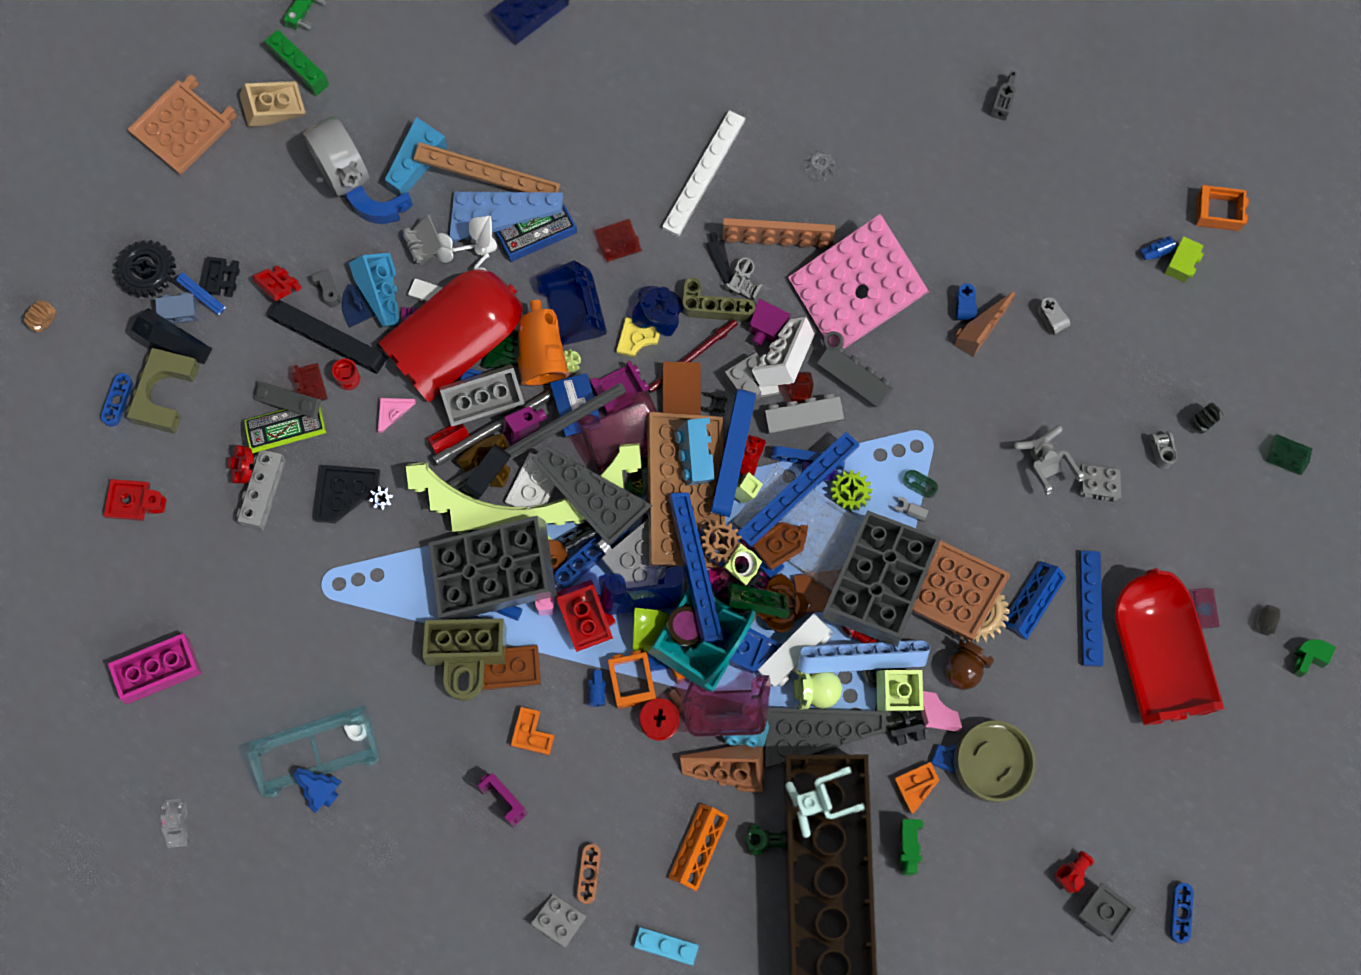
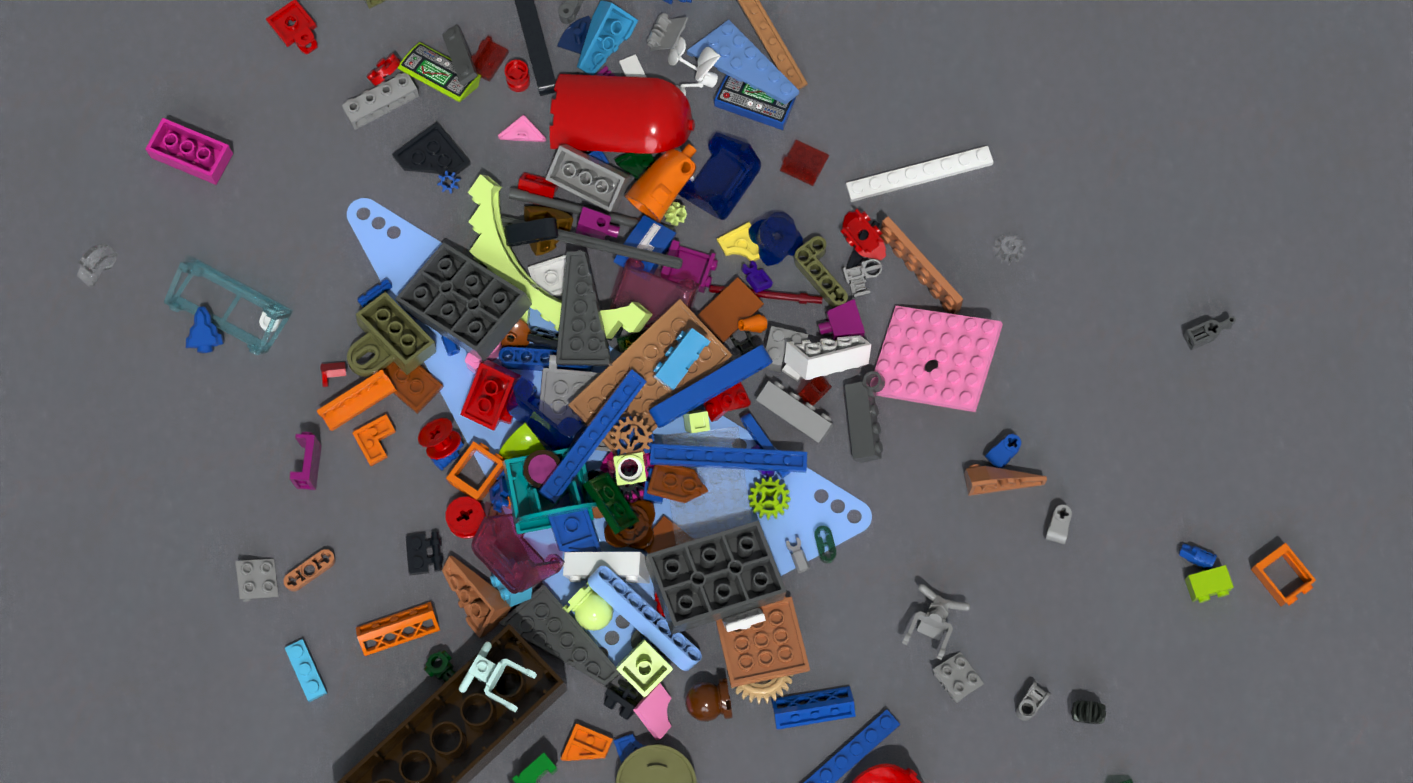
camera: 50 degrees right, 0 degrees up
(413, 631) = (374, 292): none -> blue axle
(445, 717) = (332, 370): none -> red tile
(489, 719) = (357, 400): none -> orange fence
(581, 683) = (439, 438): none -> red piece
(652, 780) = (417, 553): none -> black plate
(665, 678) = (498, 495): none -> blue plate
(676, 350) = (757, 279): none -> dark purple plate
(708, 383) = (753, 324): none -> orange cone
(729, 253) = (874, 245): none -> red piece
(931, 587) = (743, 620): none -> white plate

